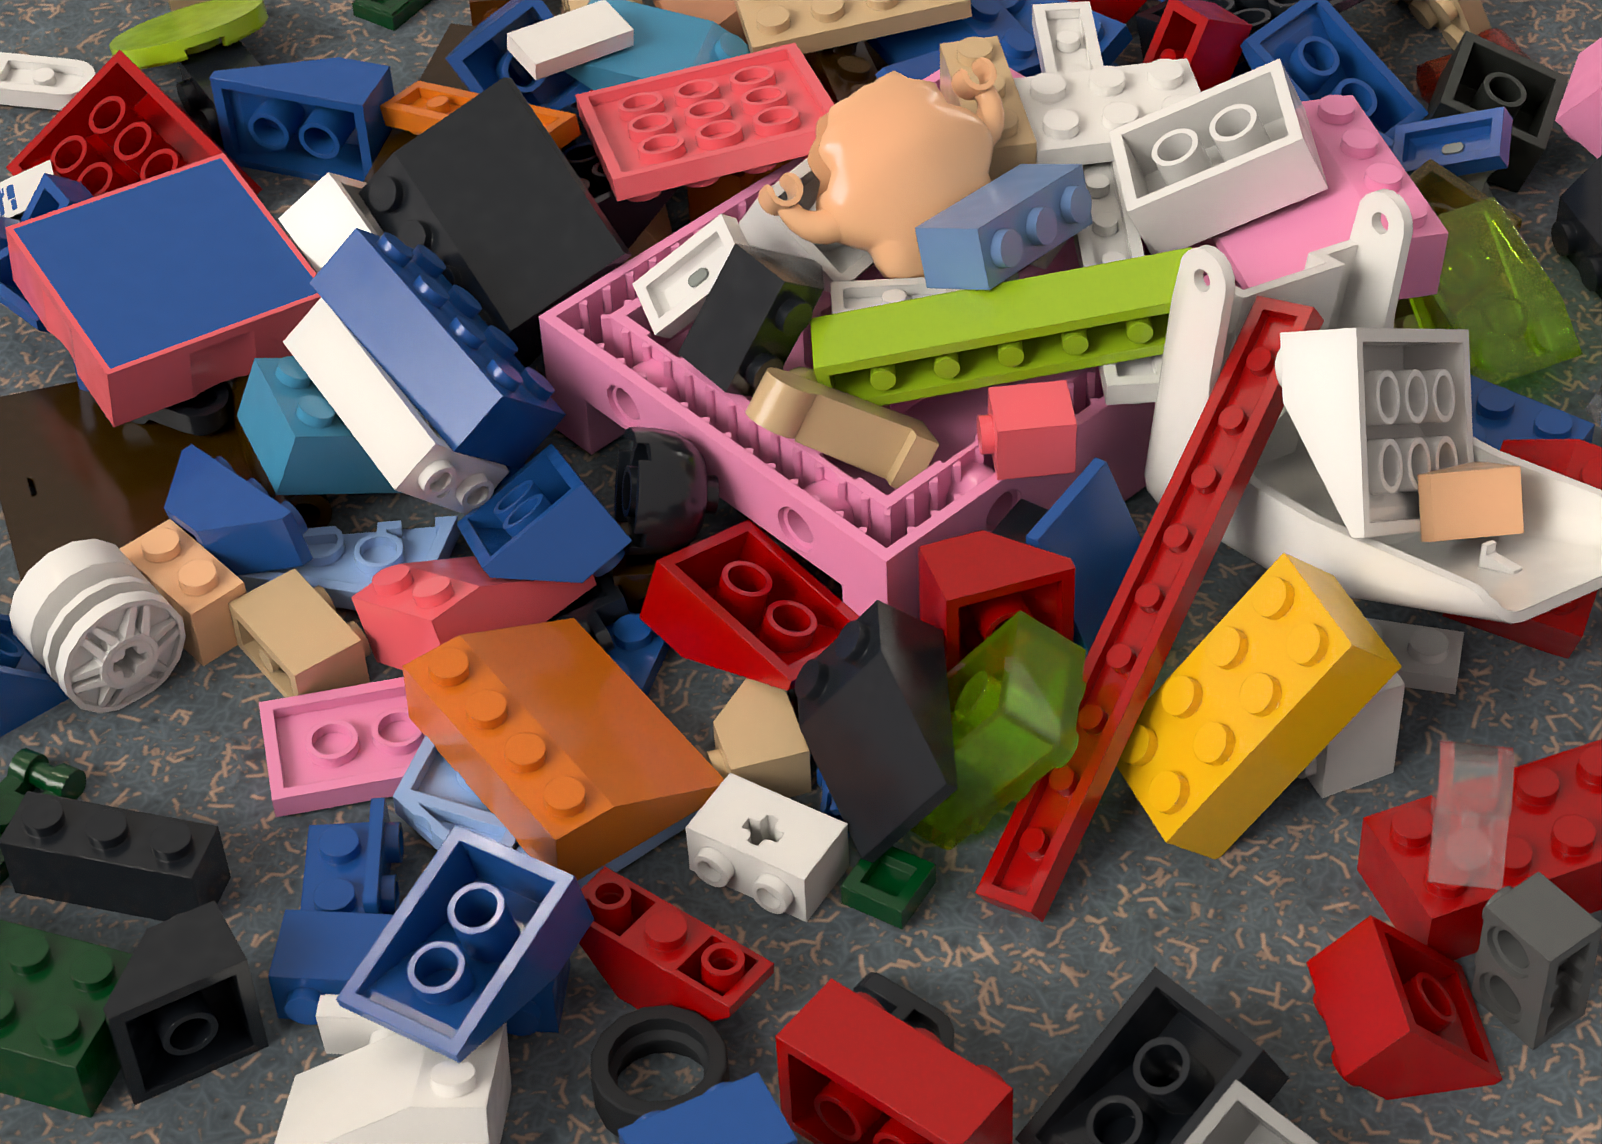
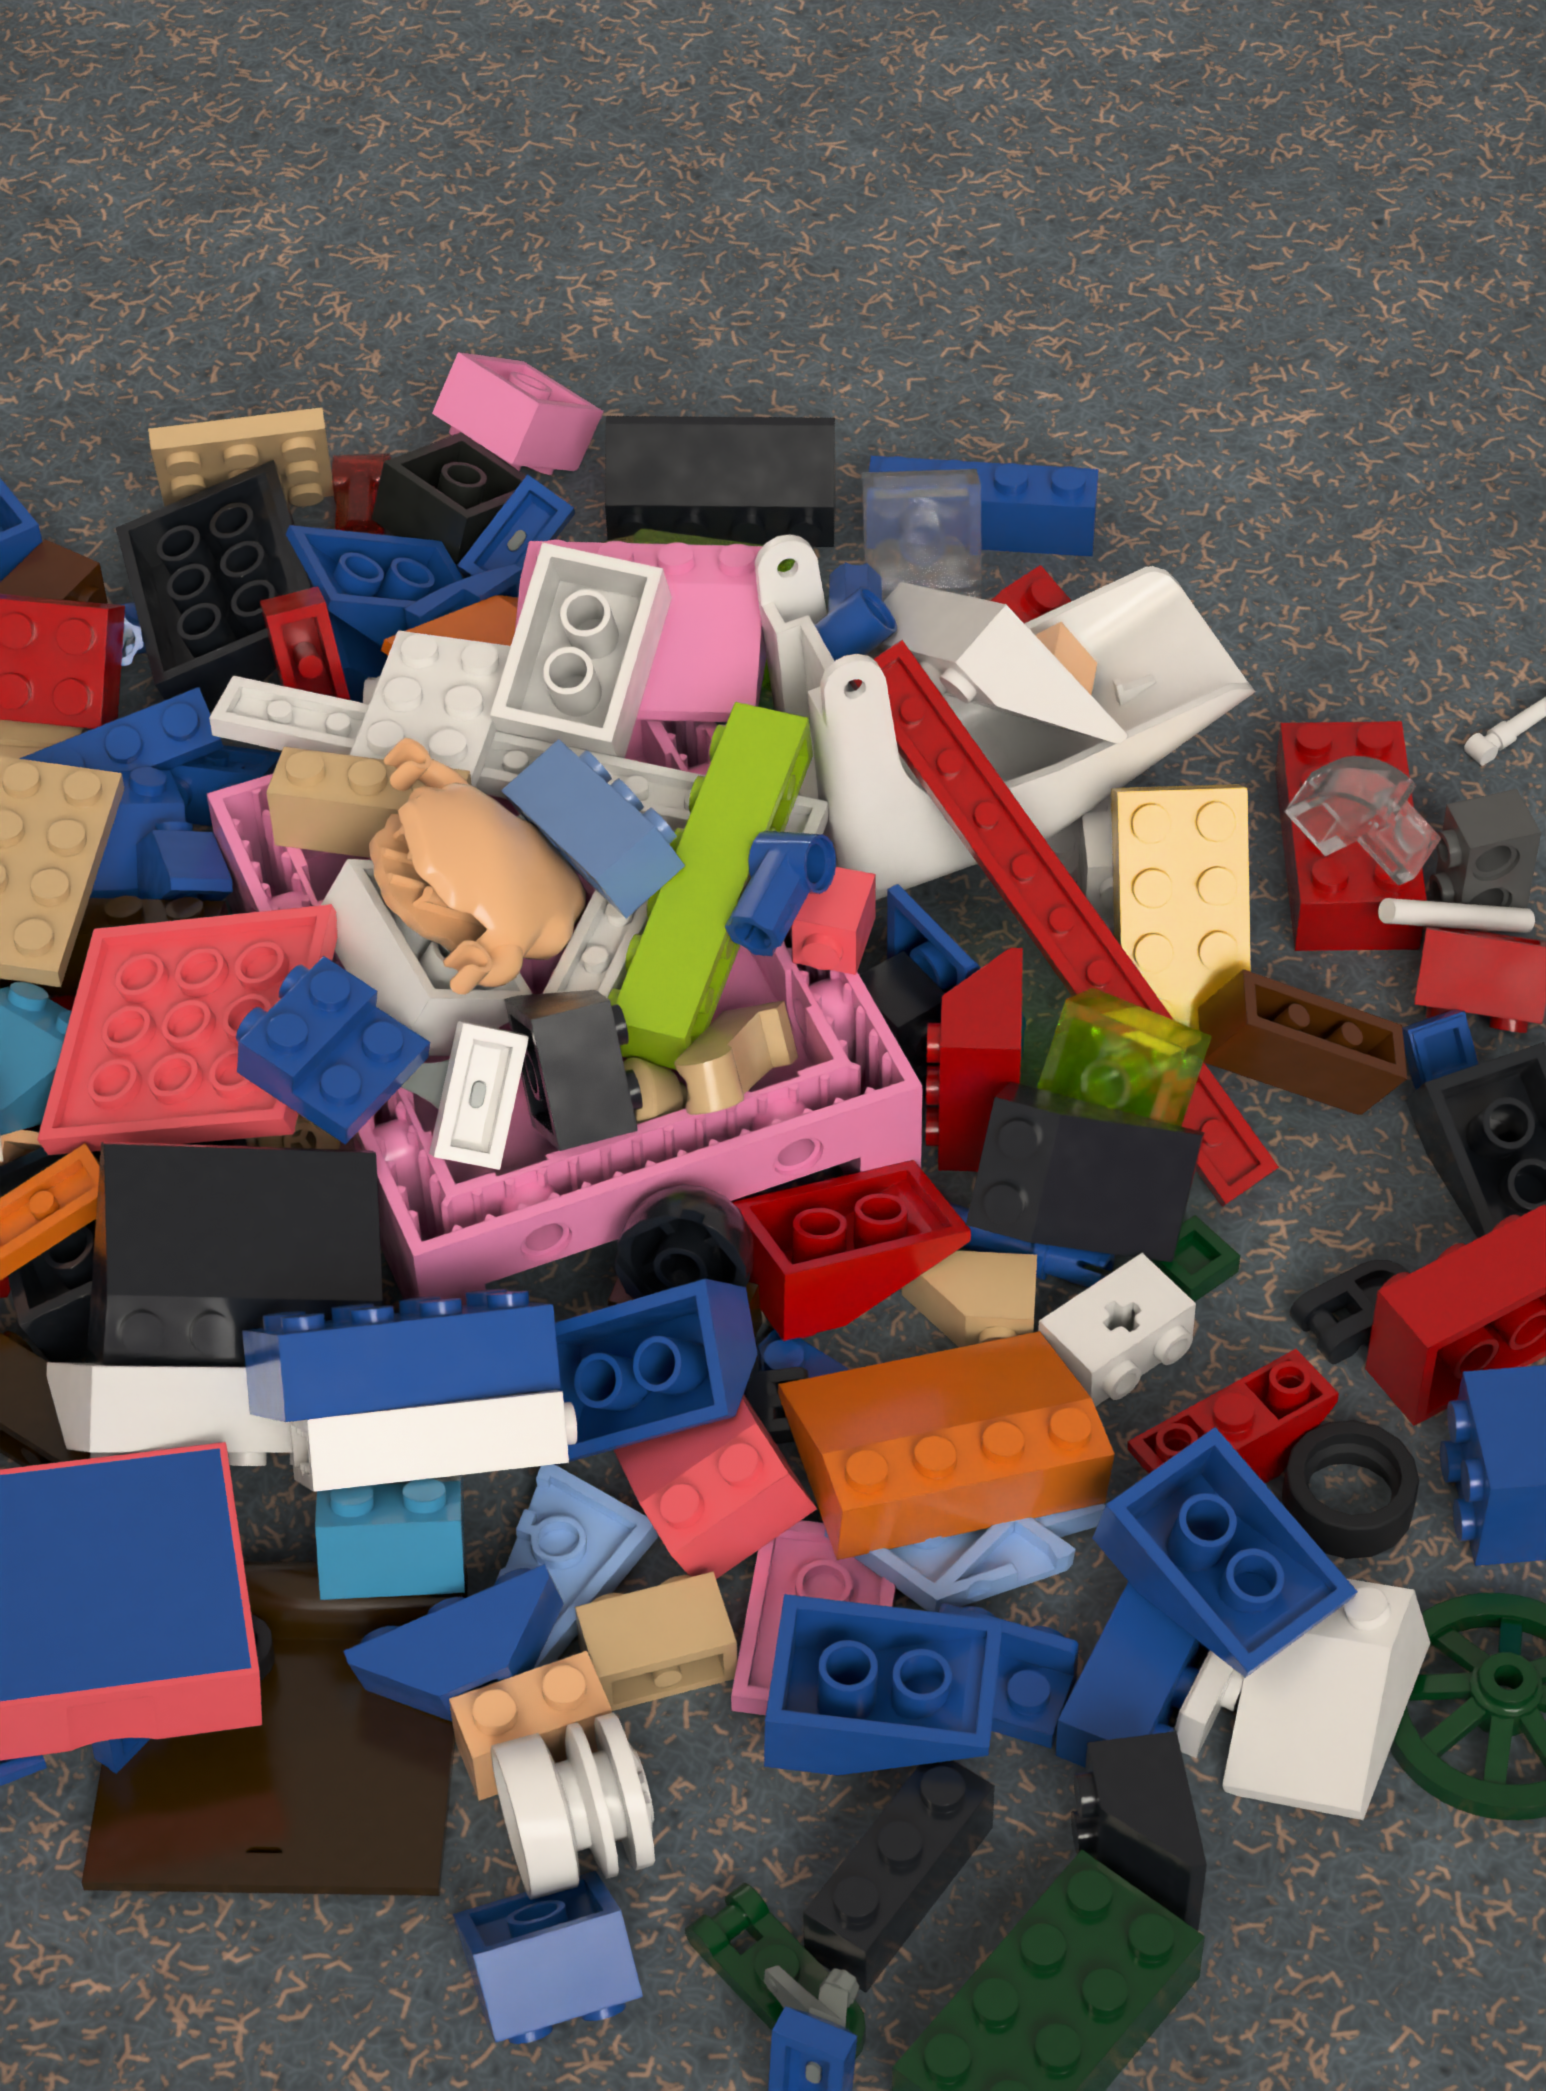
camera: 70 degrees left, 5 degrees up
(251, 752) = (878, 1687): none -> blue slope
(682, 167) = (328, 1049): none -> blue plate
(992, 357) = (782, 874): none -> blue piece
(1163, 861) = (1303, 1042): none -> reddish brown brick
(1267, 1006) = (1438, 1046): none -> blue tile
(1389, 302) = (856, 613): none -> blue piece
(1447, 962) = (1456, 915): none -> white bar

